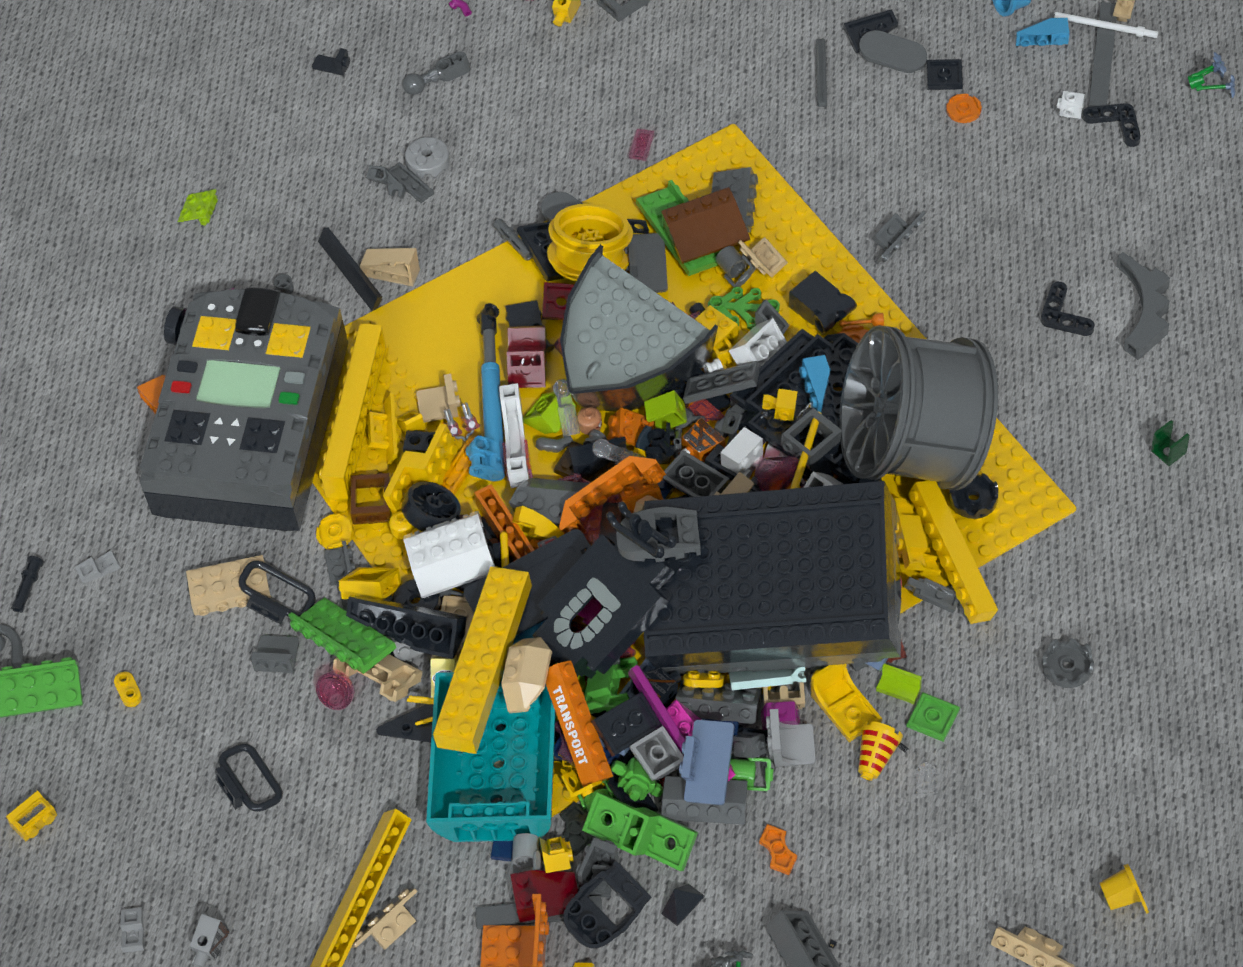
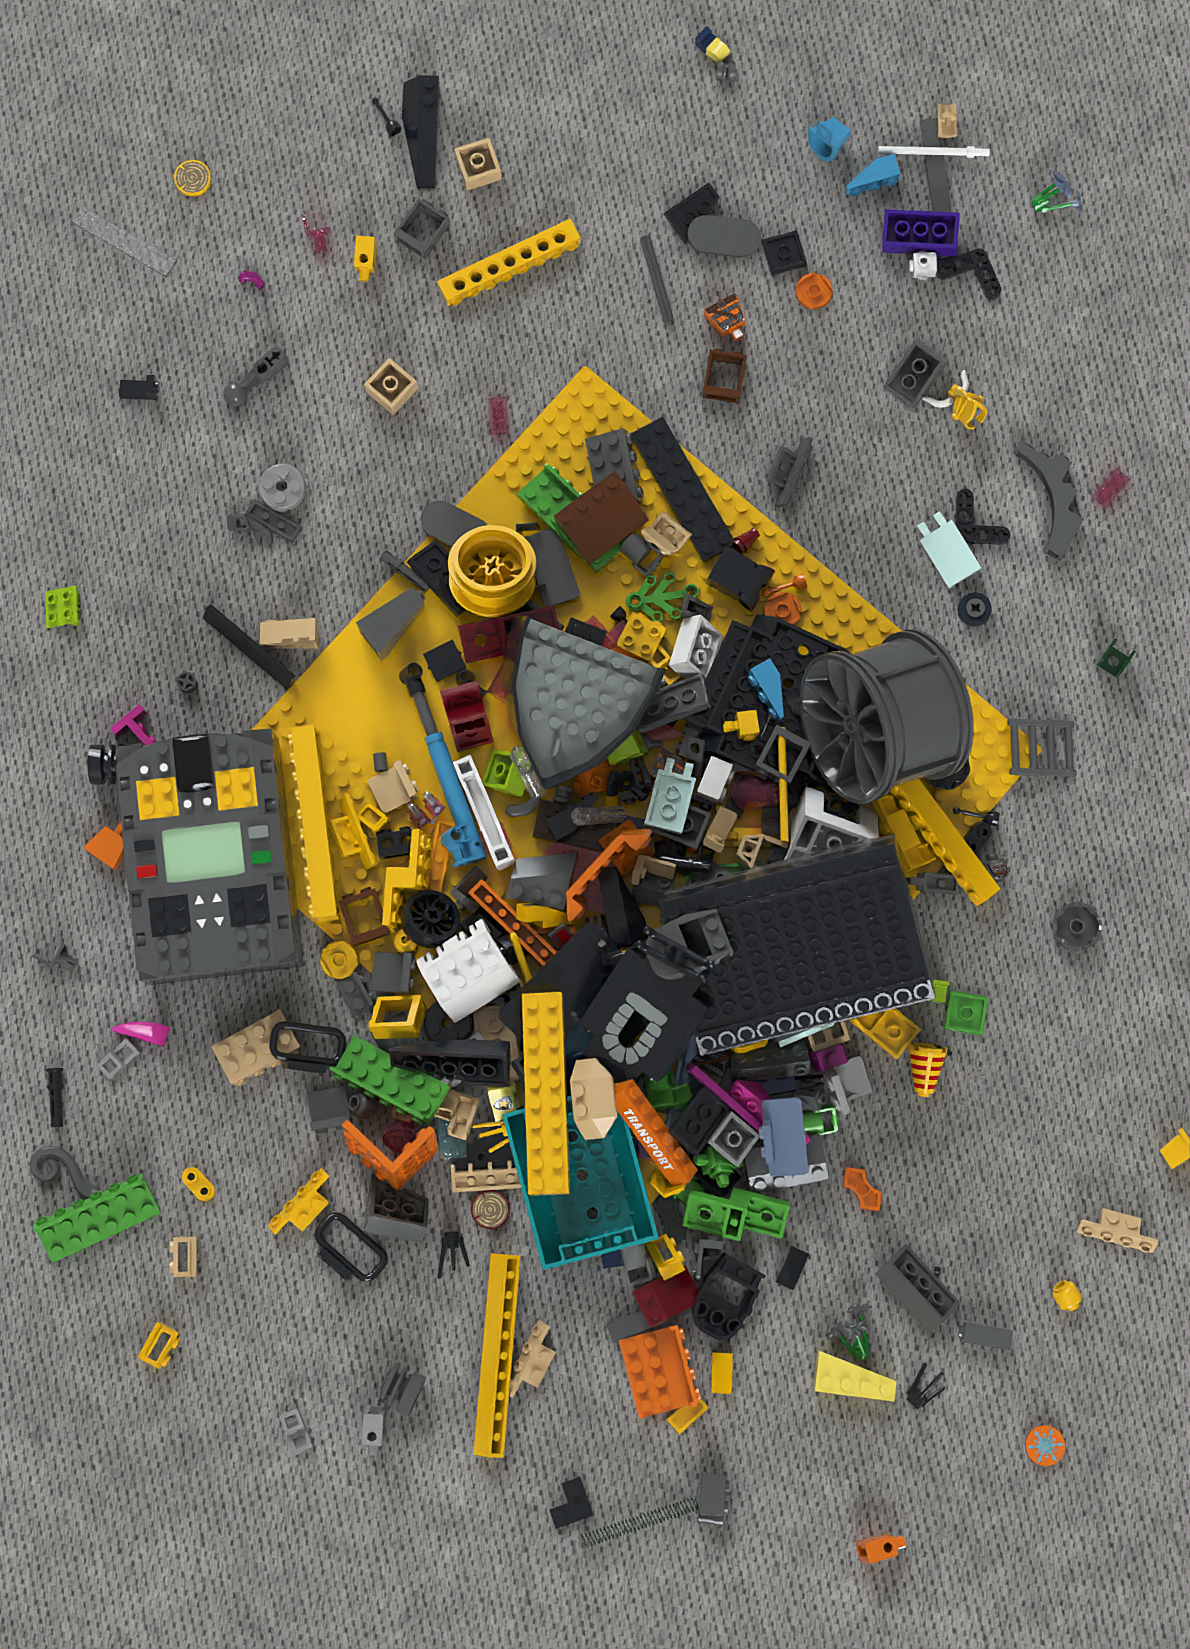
camera: 20 degrees left, 25 degrees up
(78, 471) = (60, 958): none -> dark grey bracket
(88, 745) = (184, 1256): none -> tan window
(131, 551) = (144, 1031): none -> dark pink piece
(220, 732) = (303, 1206): none -> yellow bracket
(249, 909) = (401, 1388): none -> dark grey wheel
(304, 755) = (395, 1213): none -> dark grey wedge
(309, 654) = (363, 1105): none -> dark grey head
(322, 700) = (404, 1167): none -> orange bracket
(349, 796) = (452, 1240): none -> black plant
(378, 712) = (449, 1149): none -> clear light blue piece
(380, 549) = (393, 972): none -> dark grey bracket
(398, 777) = (490, 1209): none -> dark tan tile
(399, 747) = (484, 1179): none -> tan hinge
(433, 379) = (380, 762): none -> dark grey hinge
(467, 498) = (460, 892): none -> dark grey bracket
(484, 271) = (389, 622): none -> dark grey slope
(552, 101) = (391, 386): none -> tan brick
(691, 34) = (564, 230): none -> yellow brick
(694, 455) = (670, 798): none -> light aqua tile
(790, 226) = (682, 489): none -> black plate
(838, 277) = (745, 541): none -> dark red cone
(853, 165) = (719, 393): none -> reddish brown window
(875, 109) = (726, 317): none -> torso
(988, 566) = (976, 838): none -> black plate
(1001, 594) = (996, 867): none -> dark grey head
(1007, 552) = (990, 817): none -> black hinge
(1030, 327) = (949, 551): none -> light aqua tile
(1040, 183) = (916, 373): none -> dark grey slope
(1040, 385) = (970, 614): none -> black wheel
(1076, 76) = (920, 231): none -> dark purple brick
(1077, 213) = (964, 403): none -> yellow helmet
(1089, 488) = (1050, 725): none -> dark grey bar
(1204, 311) = (1110, 488): none -> clear pink plate

